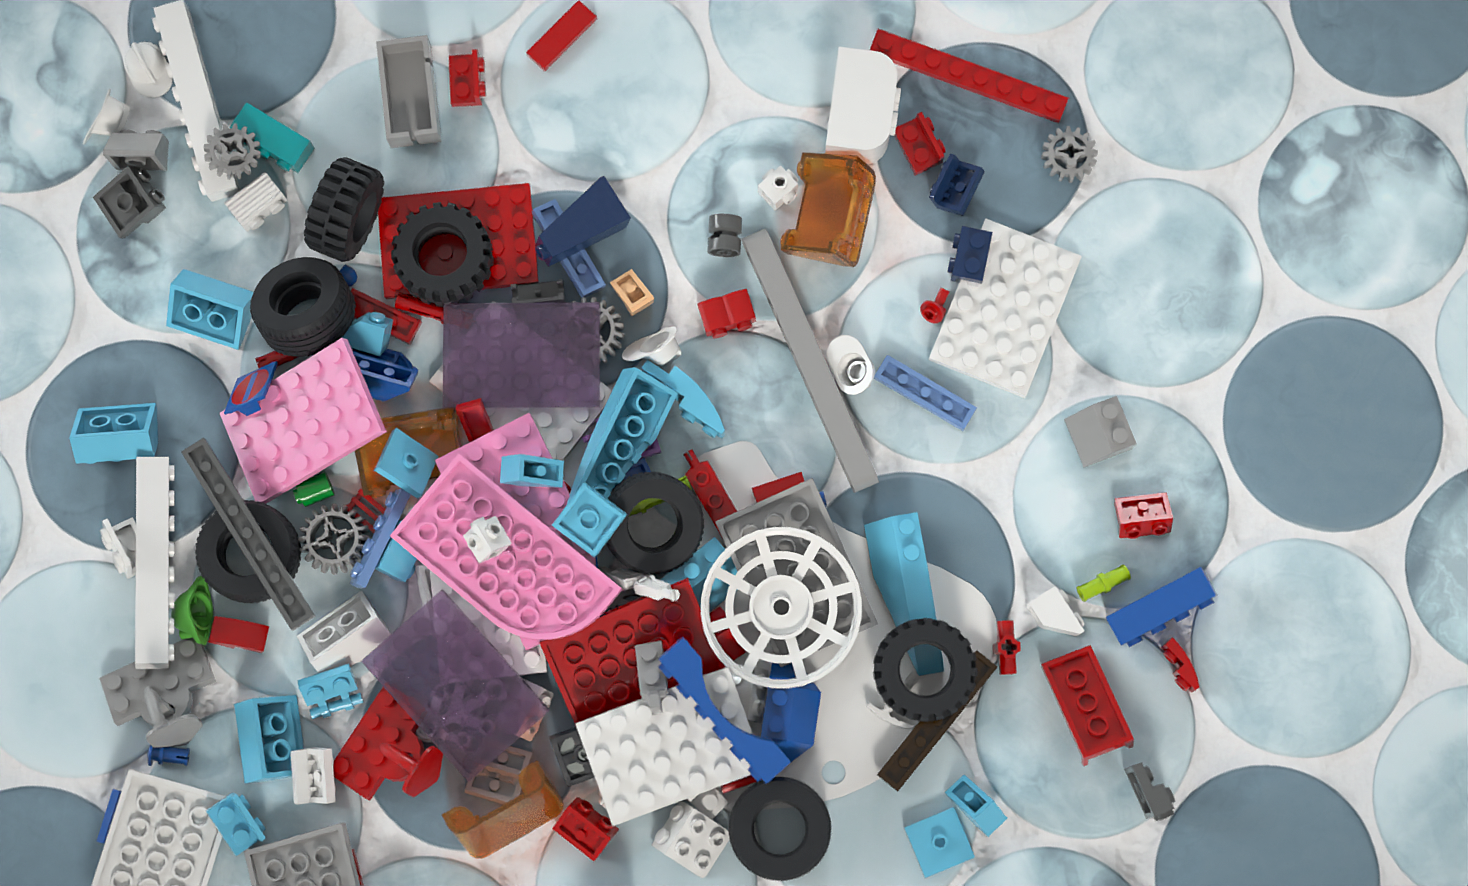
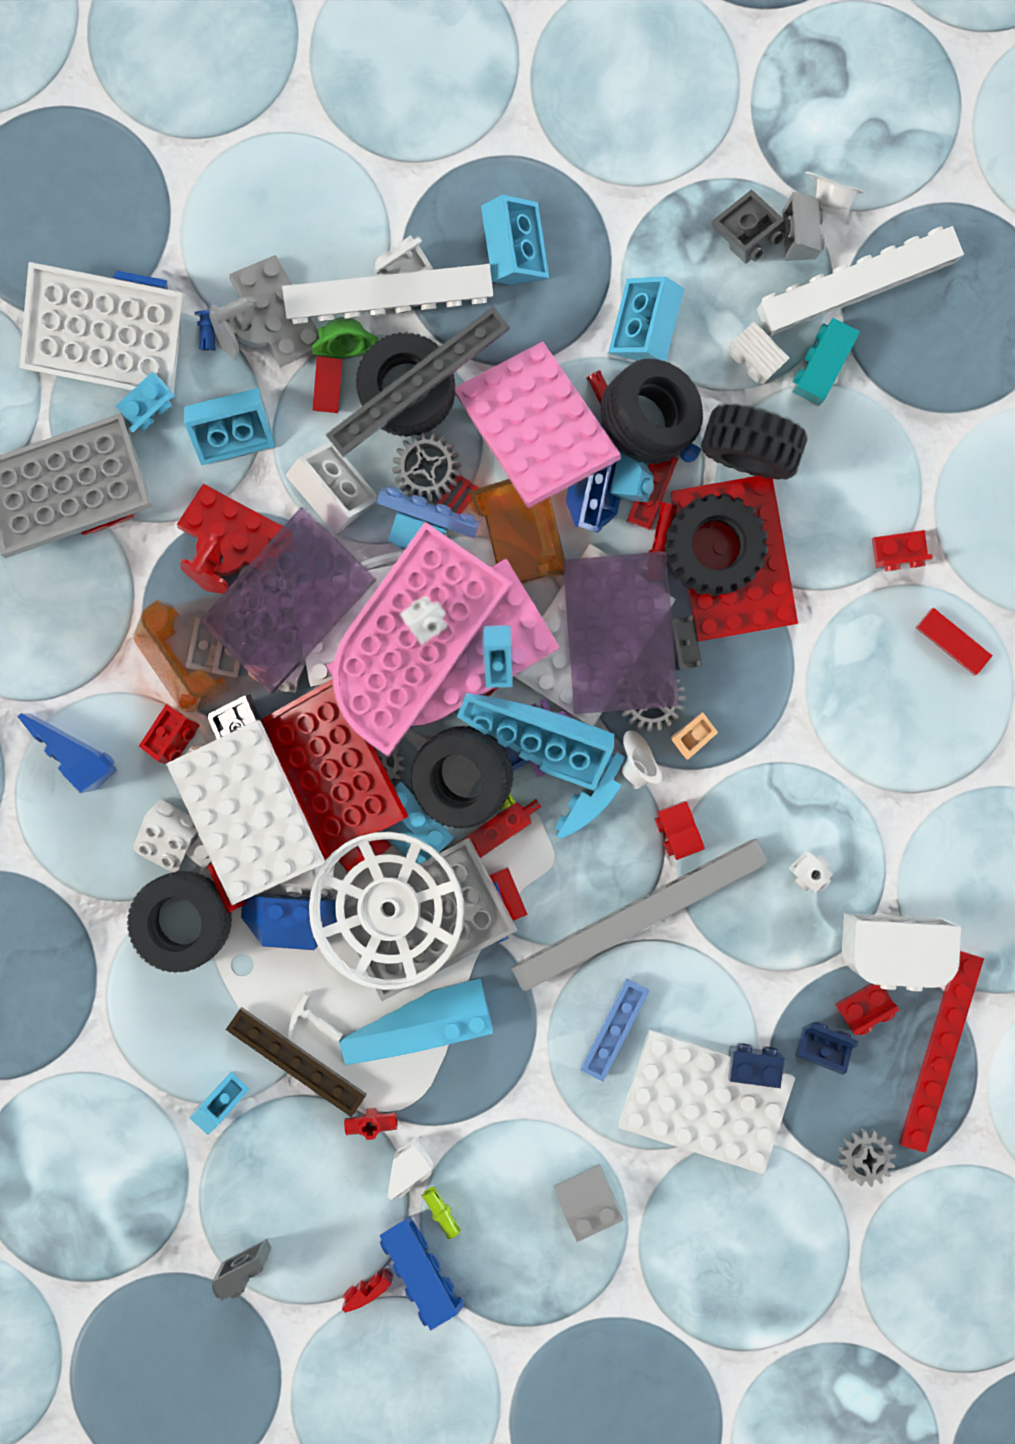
camera: 85 degrees right, 10 degrees up
(147, 69) = (888, 228): white piece -> none
(224, 144) = (812, 313): light grey gear -> none
(250, 390) = (565, 369): blue piece -> none
(313, 775) = (196, 471): white bracket -> none
(314, 489) = (472, 442): green brick -> none
(328, 685) = (282, 476): medium azure plate -> none
(406, 463) = (503, 530): medium azure plate -> none
(408, 91) = (884, 493): light grey piece -> none
(474, 419) = (551, 593): red tile -> none
(577, 266) = (733, 668): medium blue plate -> none
(587, 221) = (760, 683): dark blue slope -> none
(589, 519) = (454, 718): medium azure plate -> none
(642, 583) = (399, 775): white piece -> none
(651, 679) = (309, 791): light grey hinge -> none
(724, 236) = (758, 822): dark grey wheel -> none
(761, 753) = (243, 900): blue arch -> none
(831, 209) = (793, 925): clear orange windscreen -> none
(850, 364) = (635, 956): white piece -> none
(933, 310) = (697, 1032): red plate -> none
(939, 842) = (183, 1070): medium azure plate -> none
(961, 661) = (318, 1080): black tyre -> none
(1087, 703) = (321, 1206): red plate -> none
(1143, 515) = (510, 1248): bracket -> none

